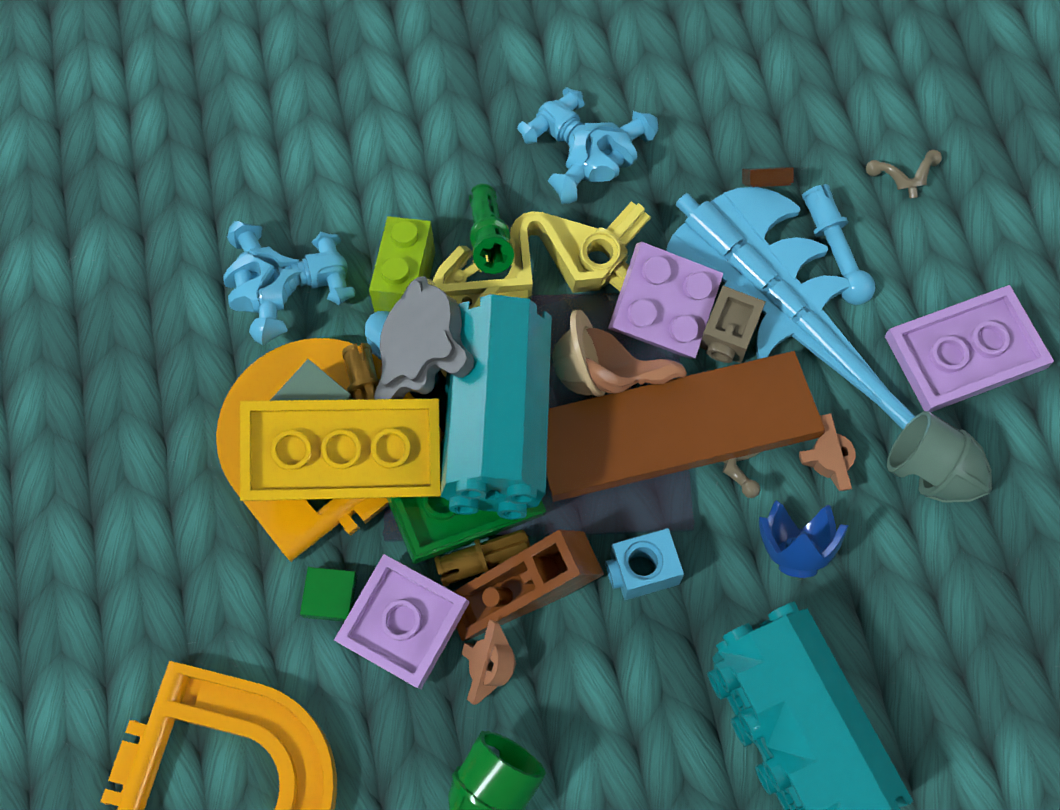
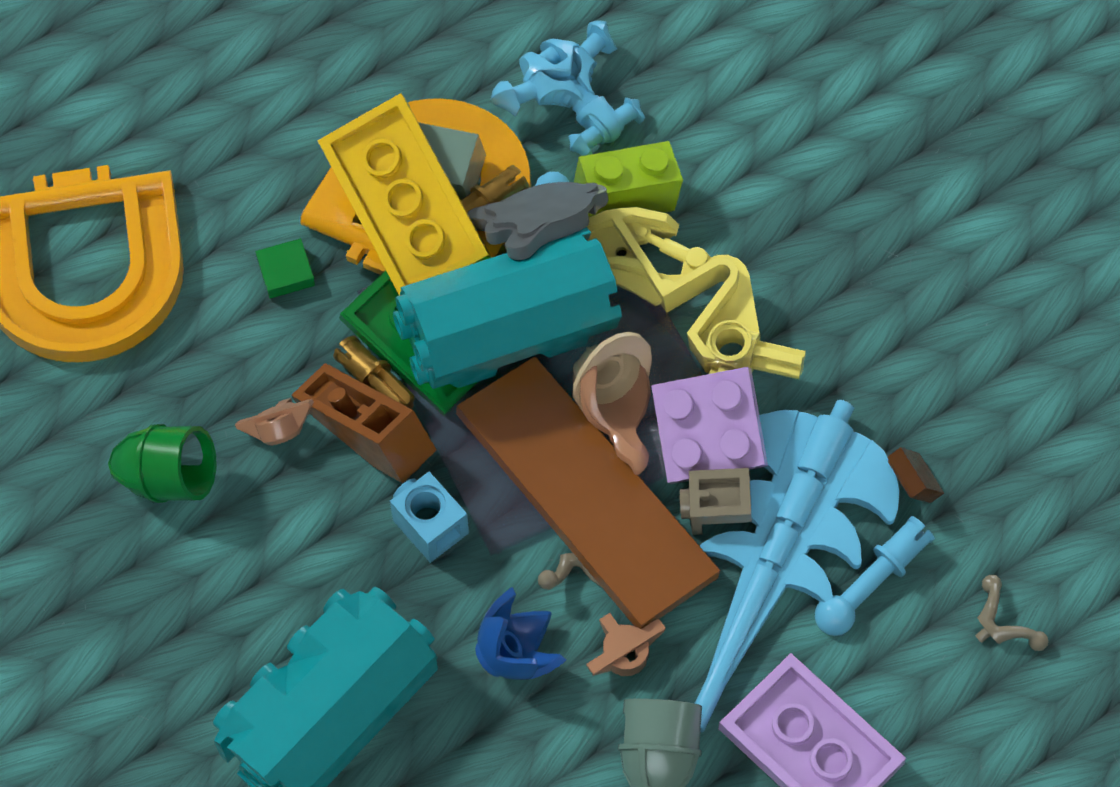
camera: 65 degrees right, 5 degrees down
(402, 621) = (283, 334): lavender plate -> none
(489, 233) = (740, 226): green pin -> none
(594, 148) = (860, 298): medium azure piece -> none

